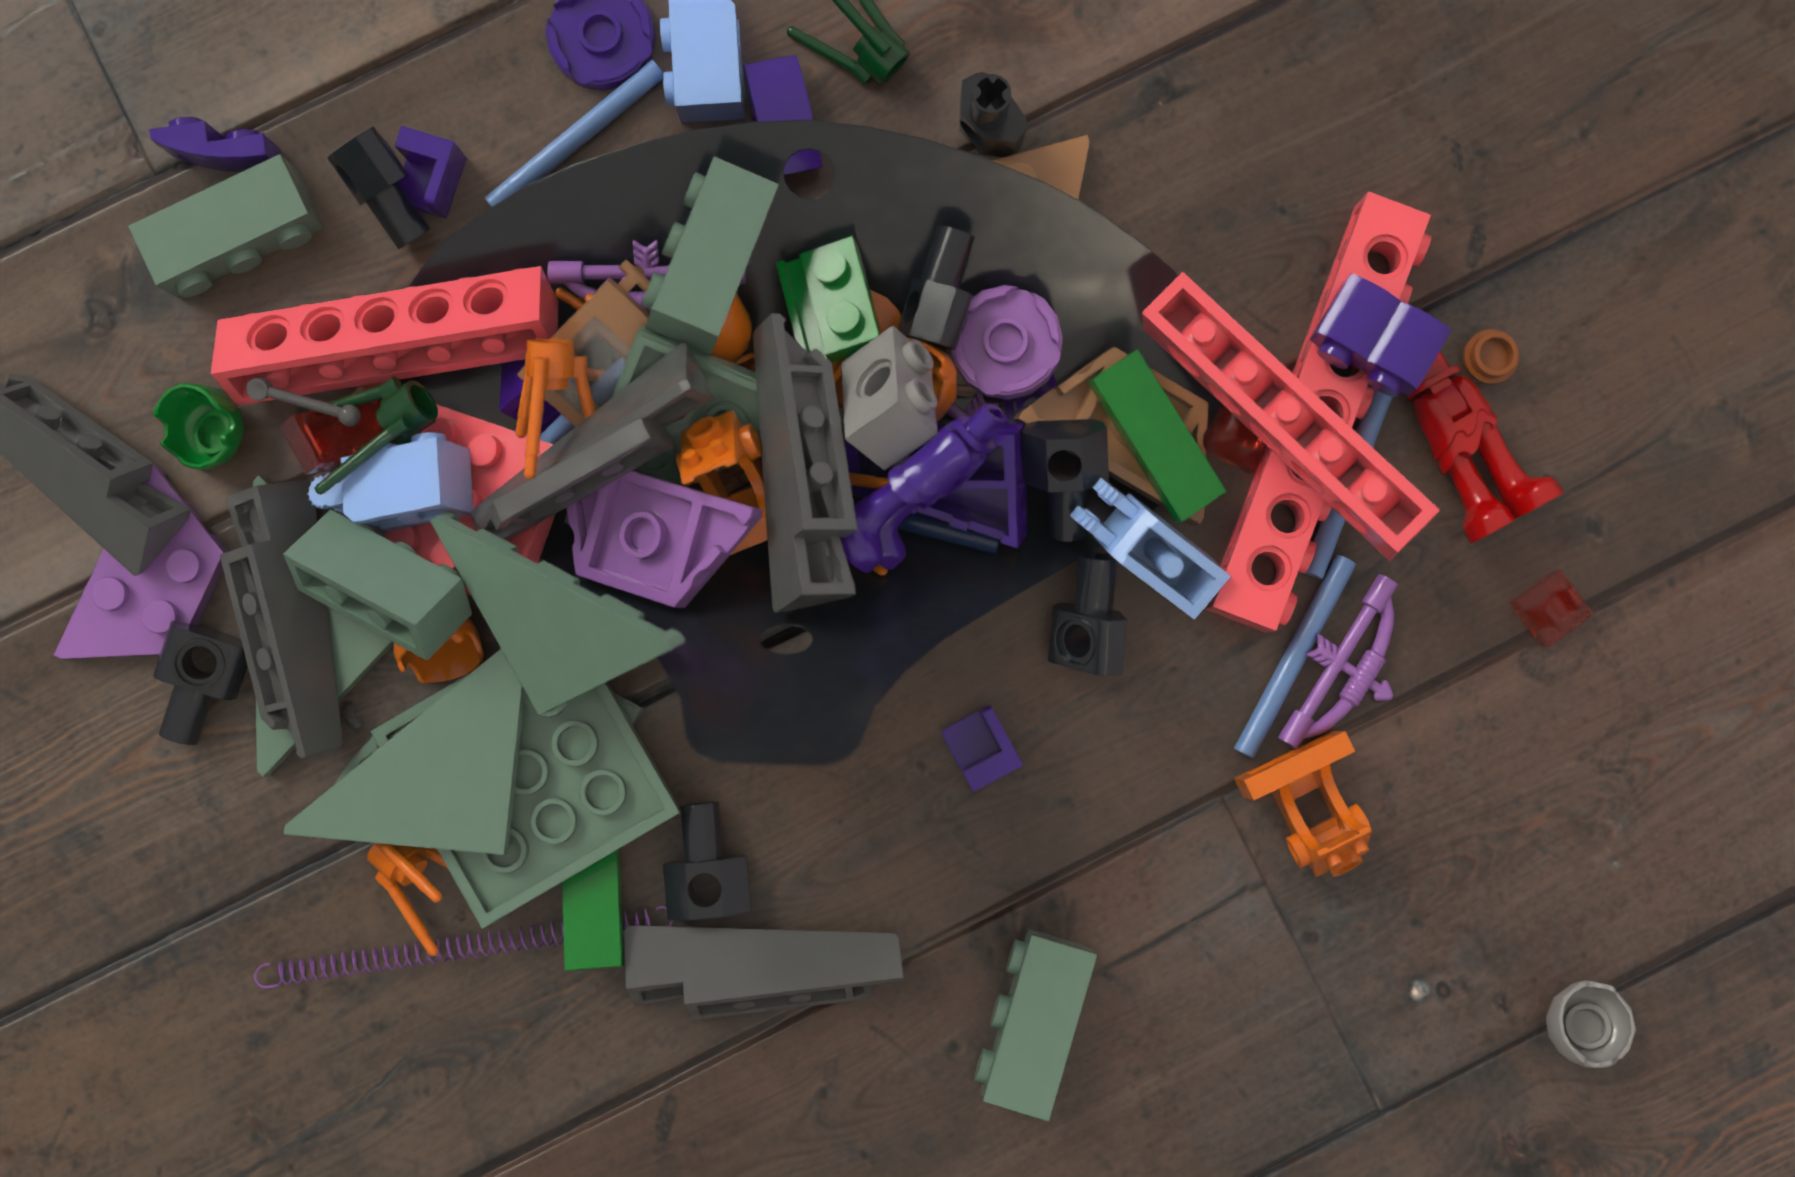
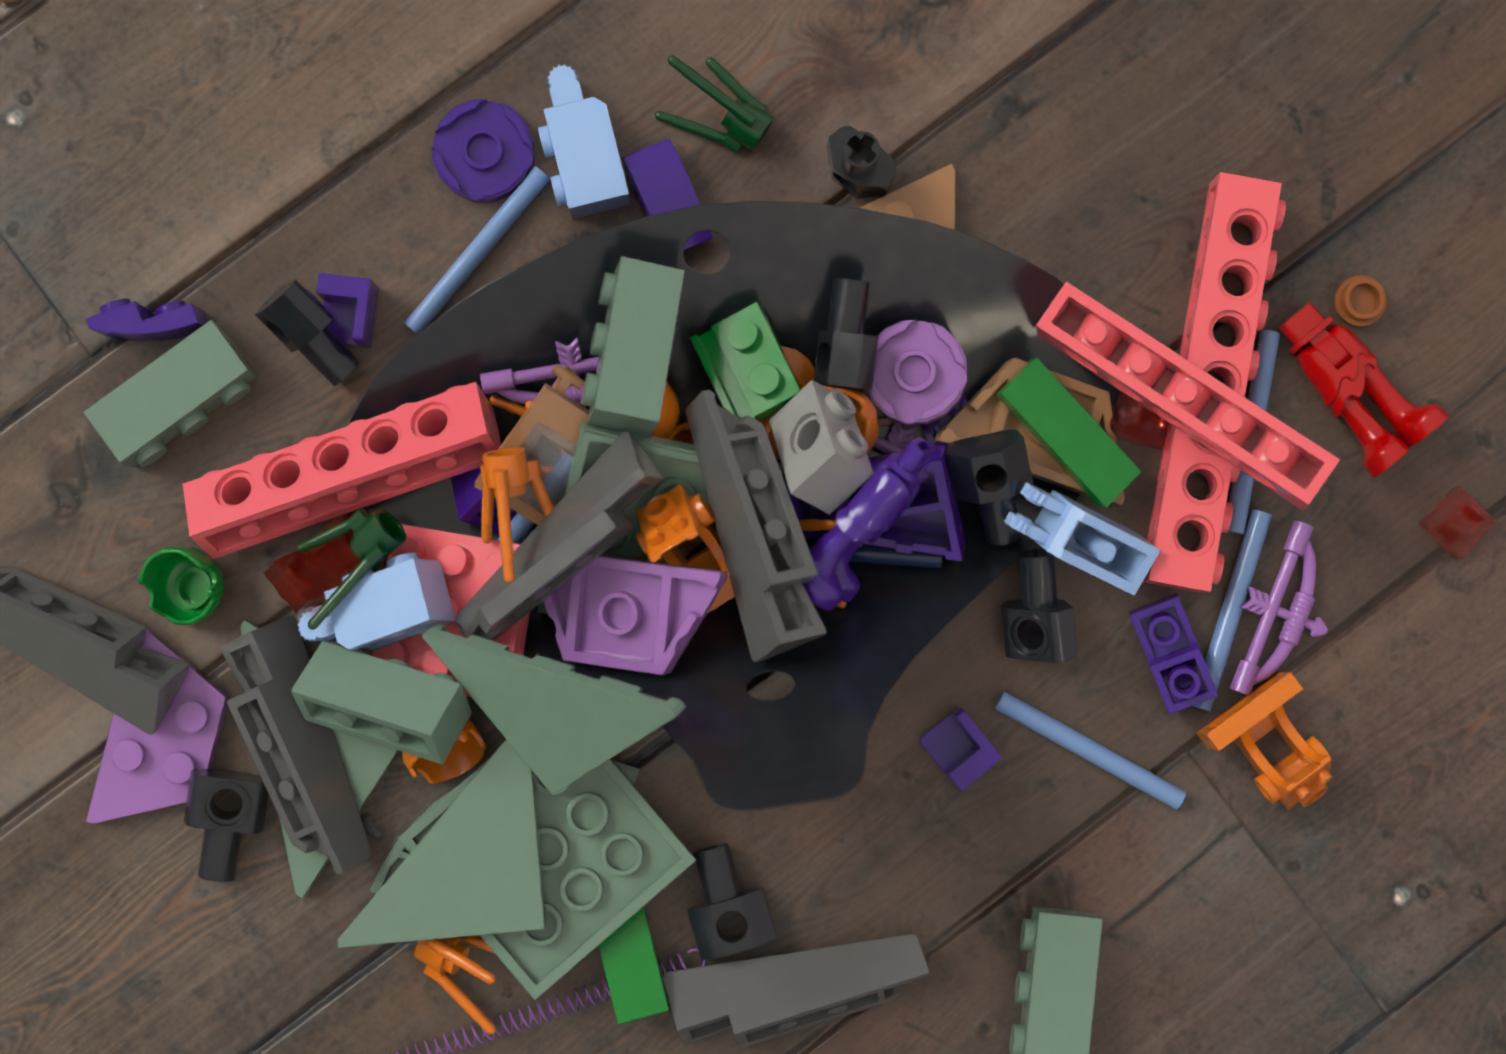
camera: 15 degrees left, 0 degrees up
(261, 388) = (238, 541): dark grey hinge -> none
(1119, 776) = (1090, 750): none -> medium blue bar
(1225, 690) = (1173, 653): none -> dark purple slope
(1379, 336) = (1256, 306): dark purple brick -> none

